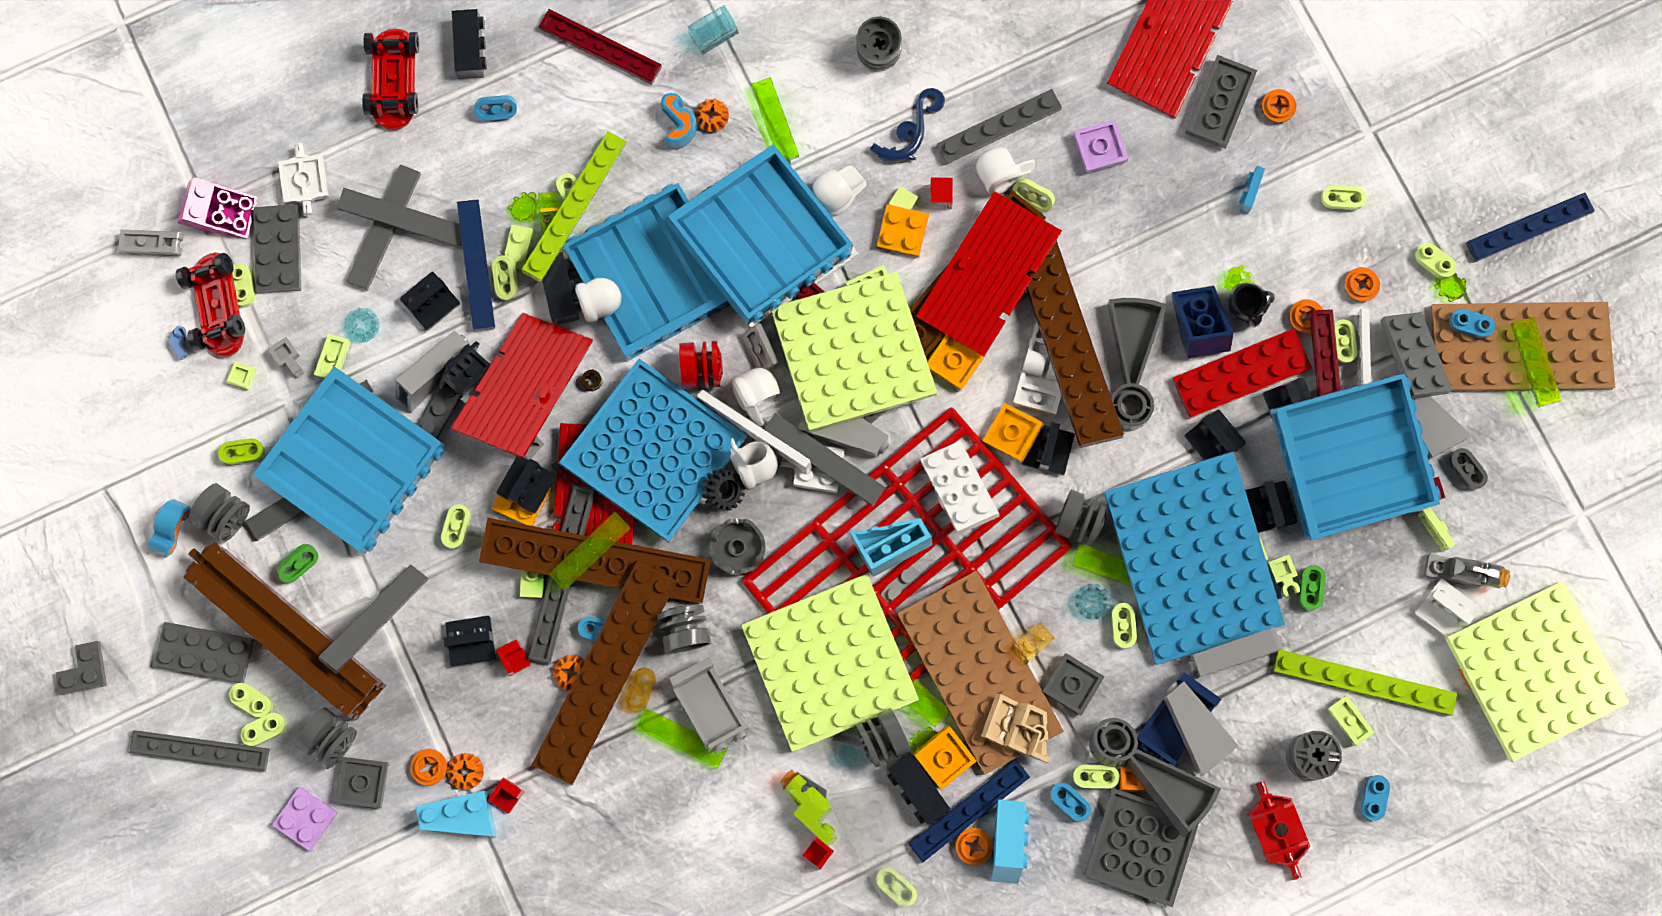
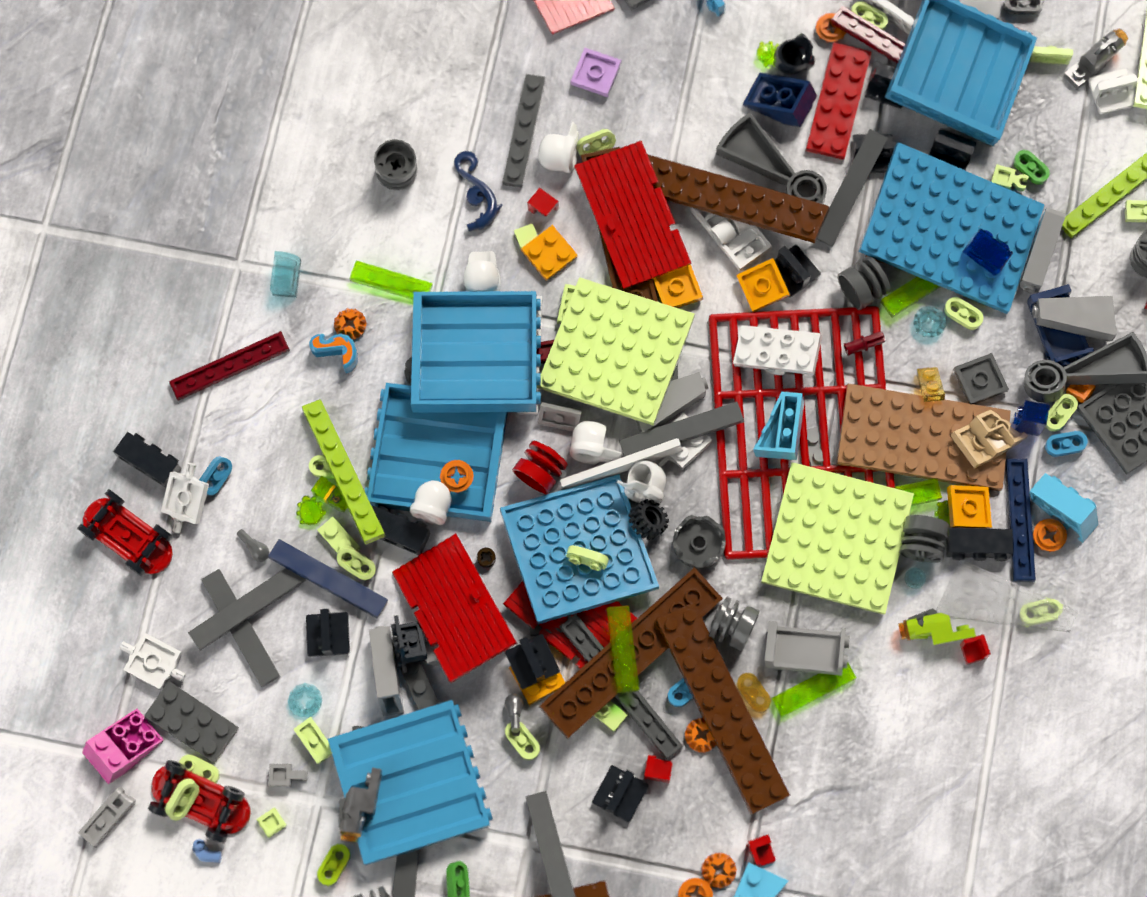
camera: 50 degrees left, 5 degrees down
(202, 289) = (182, 799): none -> yellowish green plate
(294, 431) = (356, 804): none -> flat silver plate
(456, 98) = (184, 497): none -> white plate
(458, 190) = (257, 549): none -> dark grey piece
(480, 497) = (514, 705): none -> flat silver piece
(639, 292) = (464, 470): none -> orange gear
(648, 470) = (579, 555): none -> yellowish green plate
(1026, 558) = (864, 343): none -> dark red axle
(1067, 753) = (1031, 417): none -> clear blue brick
(1162, 442) = (851, 186): none -> dark grey tile
(1193, 605) = (988, 251): none -> clear blue brick

